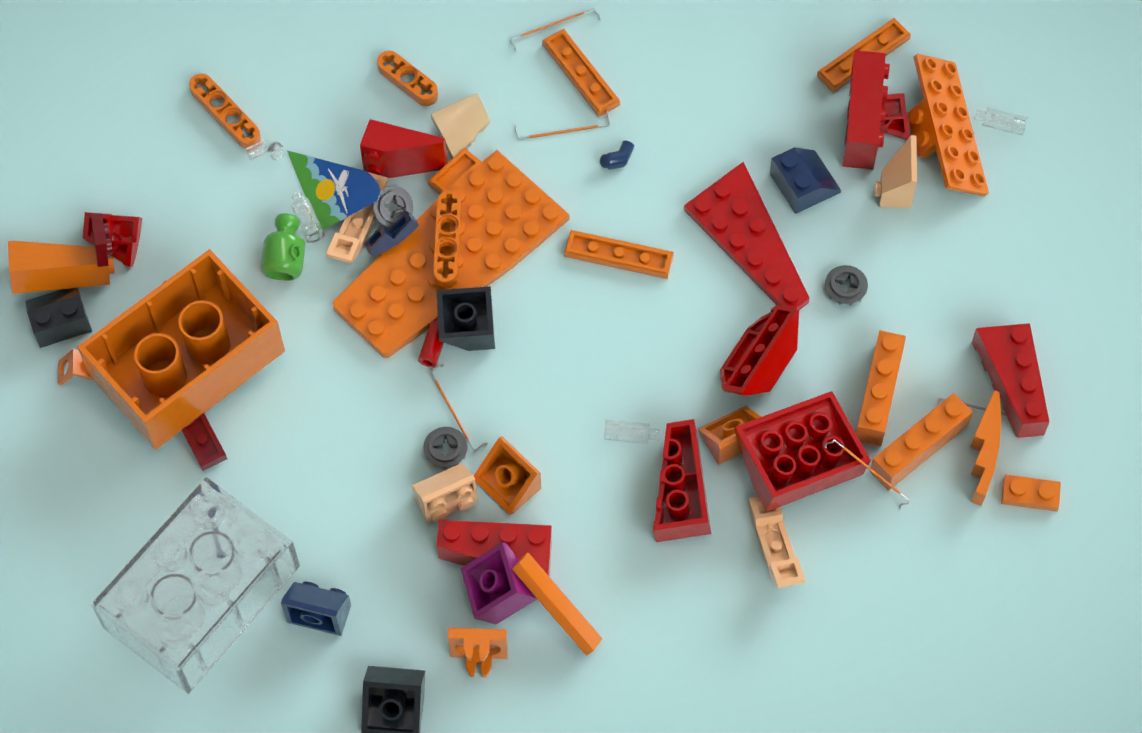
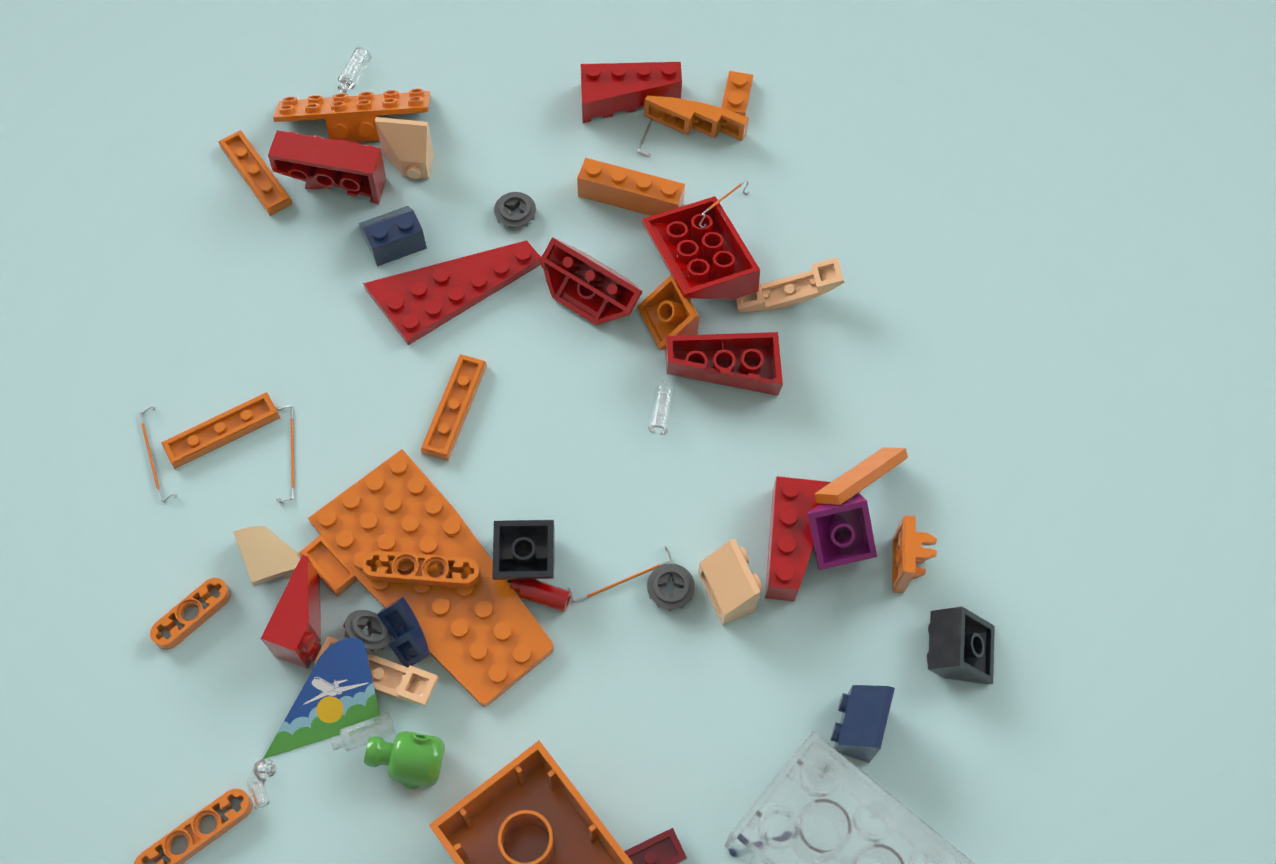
camera: 90 degrees left, 0 degrees up
(508, 476) = (710, 522): orange slope -> none
(618, 158) = (339, 399): dark blue arm -> none
(921, 441) = (687, 161): orange brick -> none

